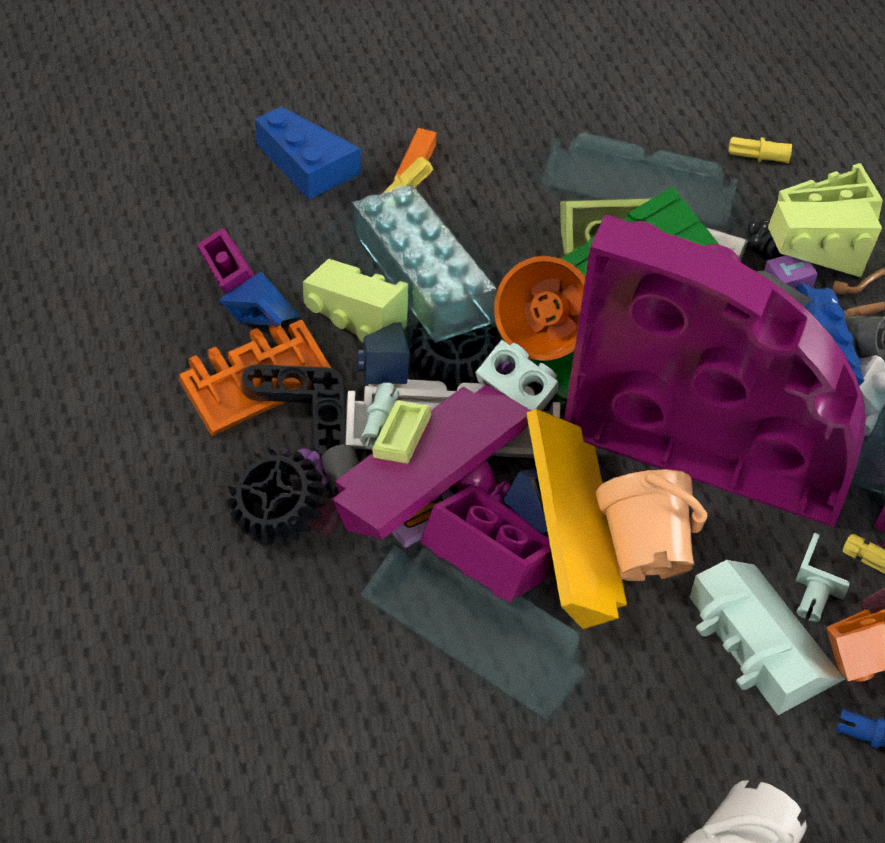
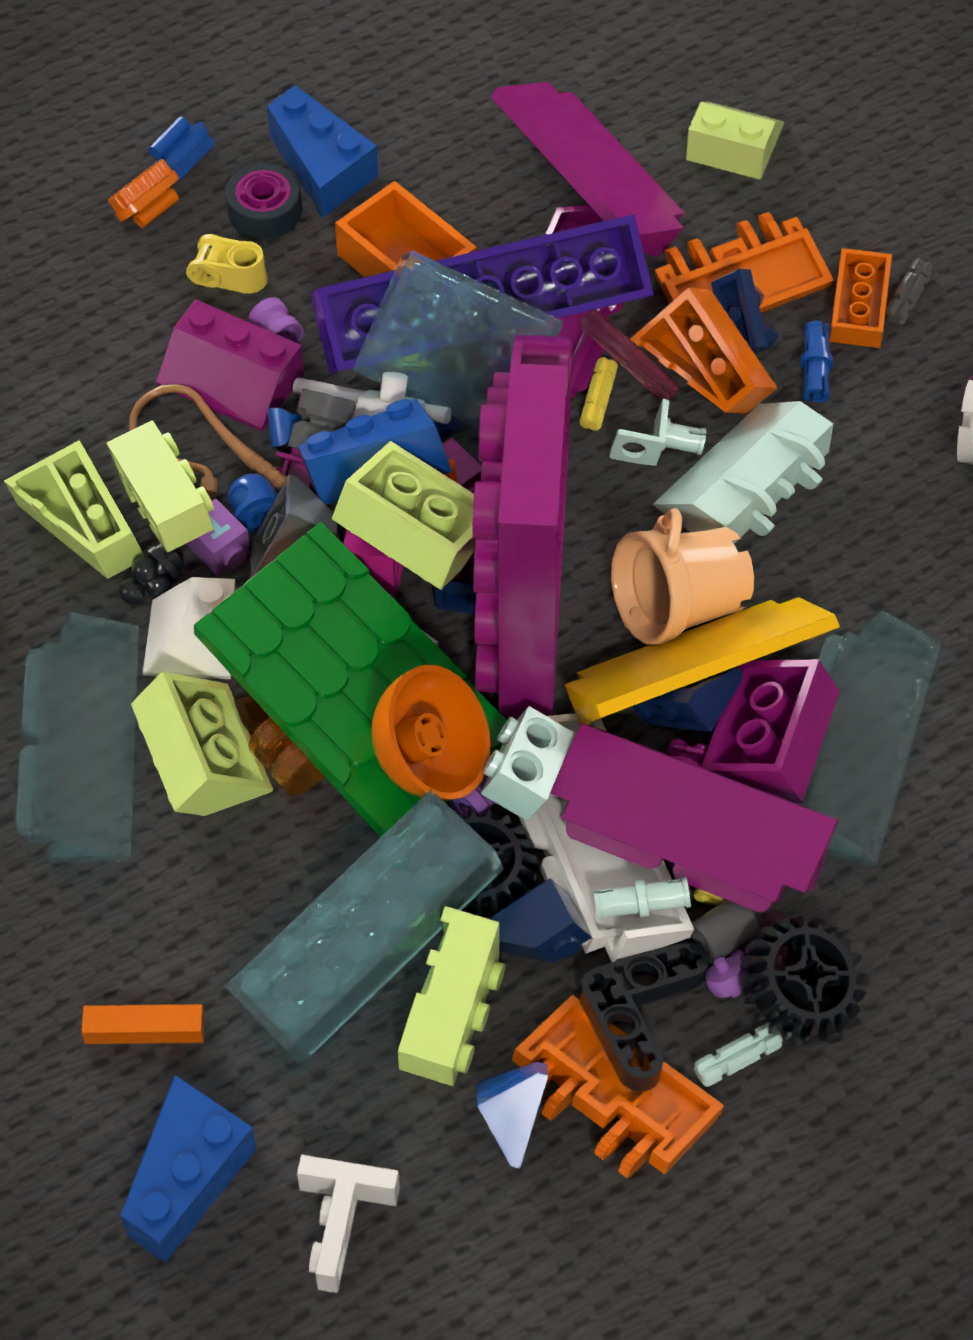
camera: 105 degrees left, 5 degrees up
(225, 260) = (455, 1176): magenta brick -> none
(245, 444) = (737, 1055): none -> light aqua axle
(249, 222) = (346, 1185): none -> white bracket
(402, 431) = (671, 852): yellowish green tile -> none
(413, 175) = (215, 1006): light yellow axle -> none

